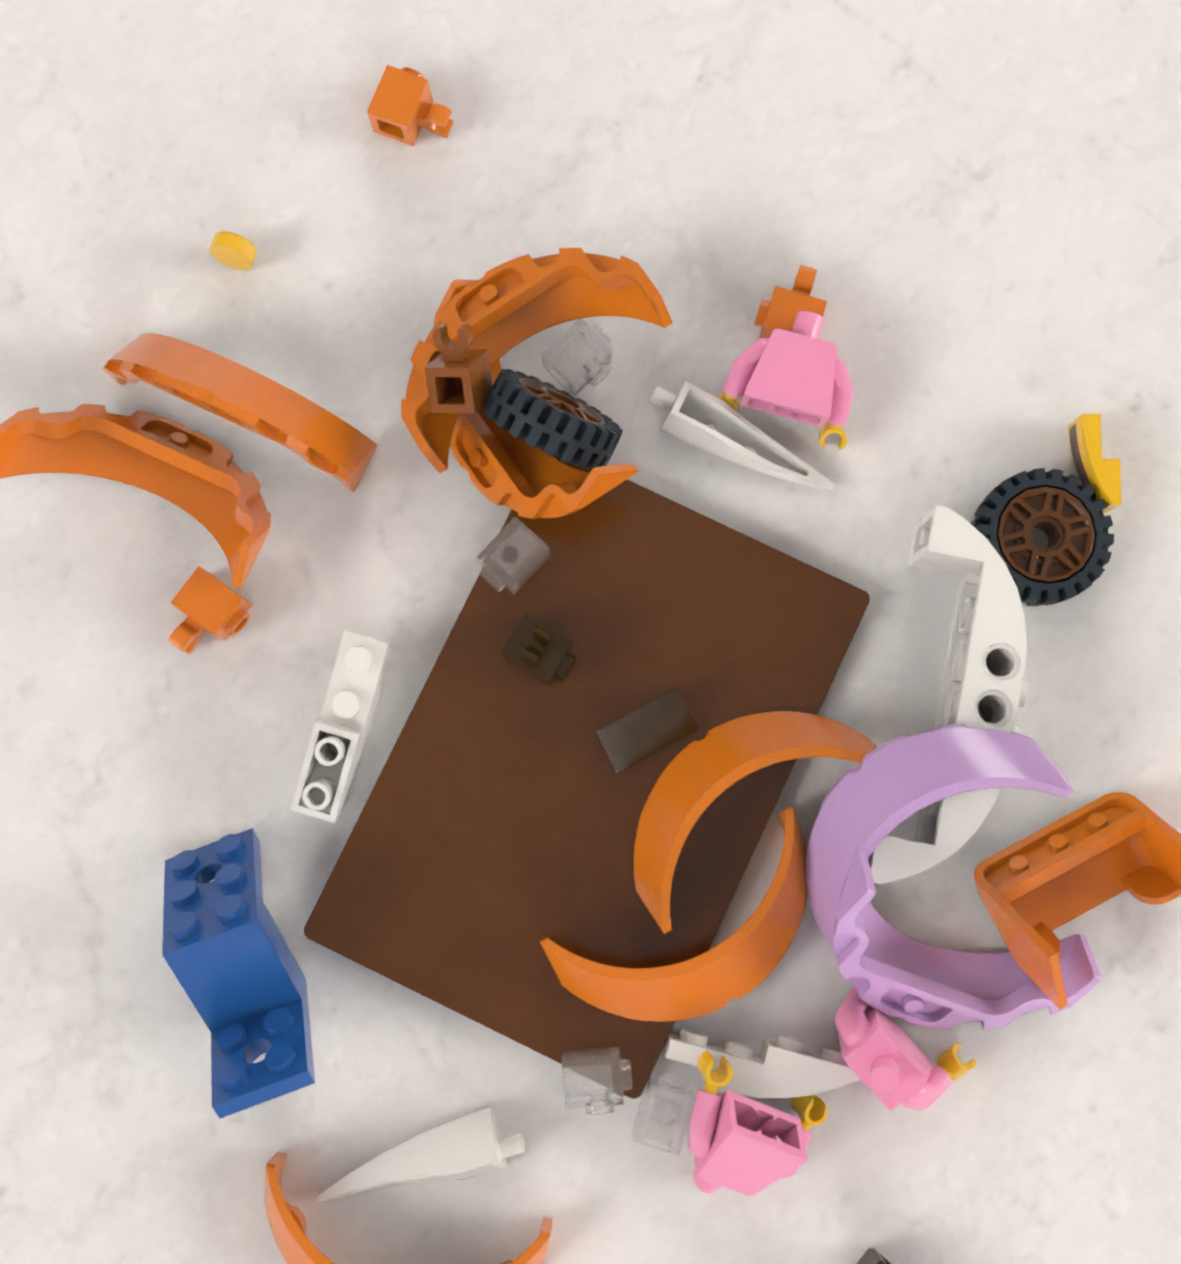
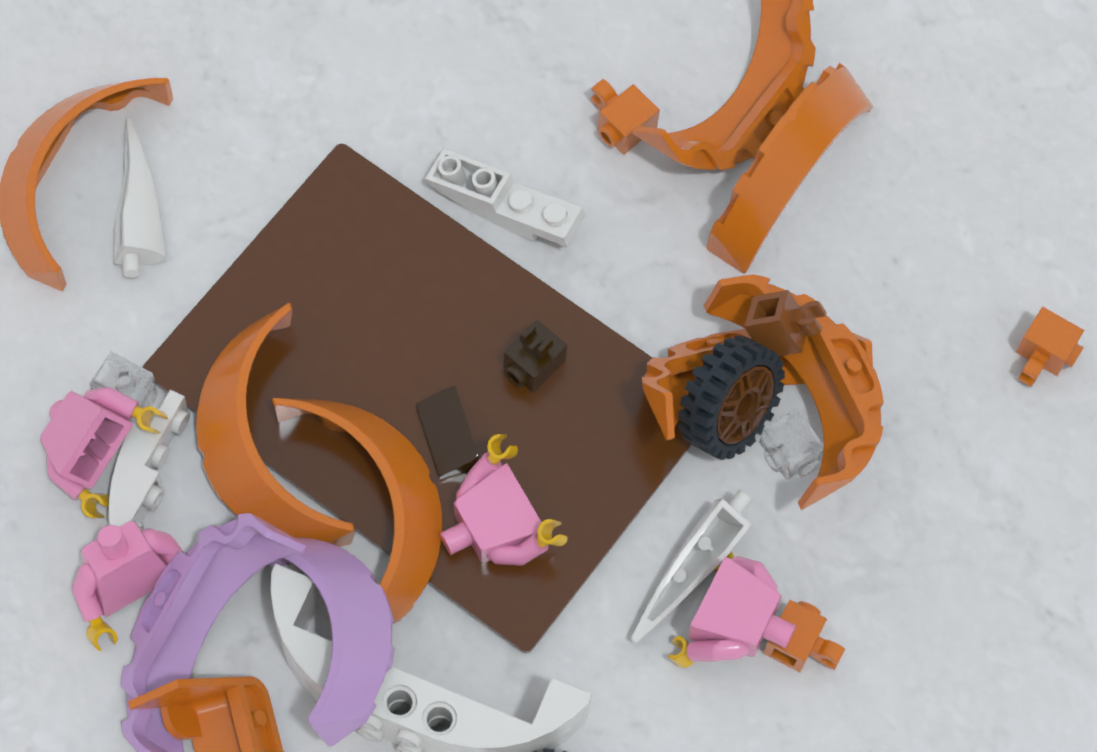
camera: 95 degrees right, 15 degrees down
(233, 250) = (935, 185): yellow tile -> none
(237, 973) = (324, 81): blue bracket -> none
(512, 557) = (619, 351): clear brick -> none
(595, 1079) = (167, 332): clear brick -> none
(737, 652) = (497, 514): none -> bright pink torso

